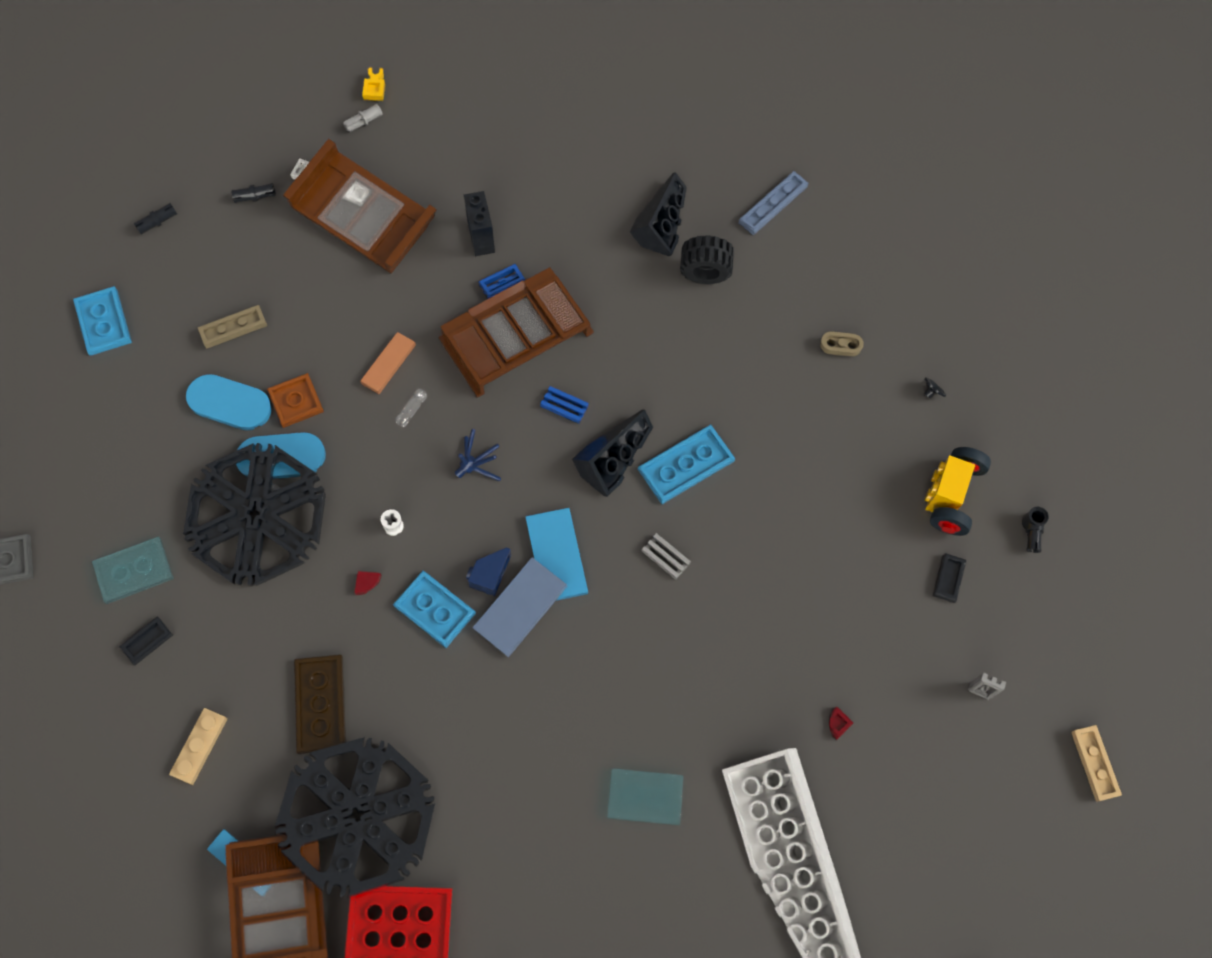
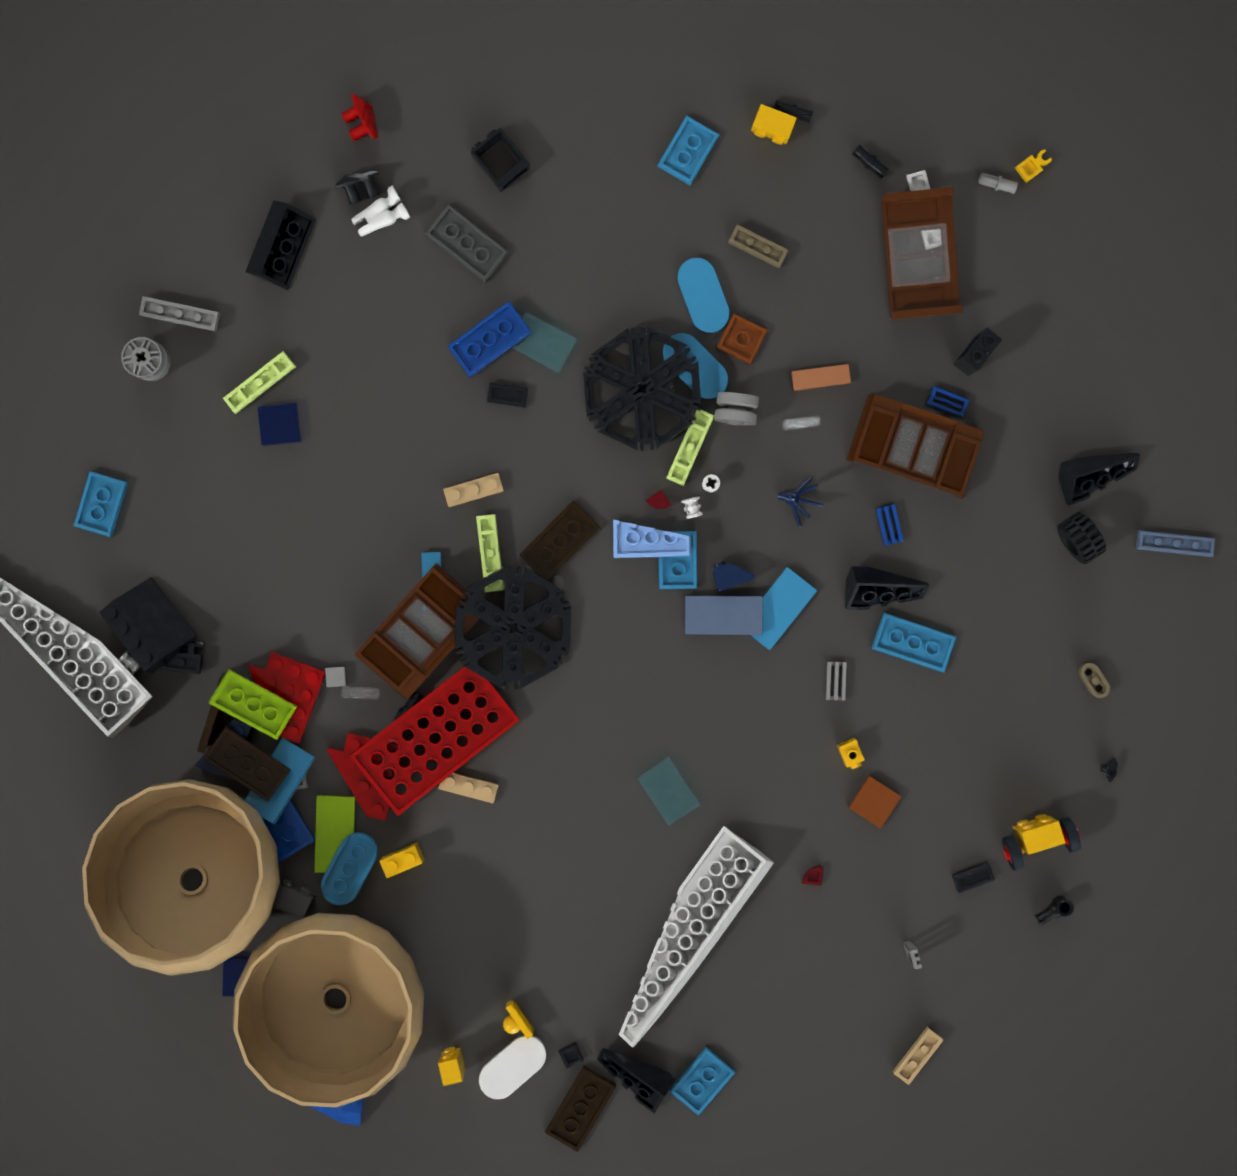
camera: 55 degrees right, 20 degrees up
(81, 614) = (489, 339): none -> blue tile
(149, 239) = (773, 124): none -> yellow brick
(267, 778) = (489, 549): none -> yellowish green plate
(345, 516) = (690, 447): none -> yellowish green plate
(346, 445) = (736, 410): none -> light grey wheel
(386, 627) = (640, 541): none -> light blue wing
(398, 555) = (692, 507): none -> white bush
(737, 597) = (846, 748): none -> yellow brick
(808, 610) = (874, 801): none -> dark orange tile

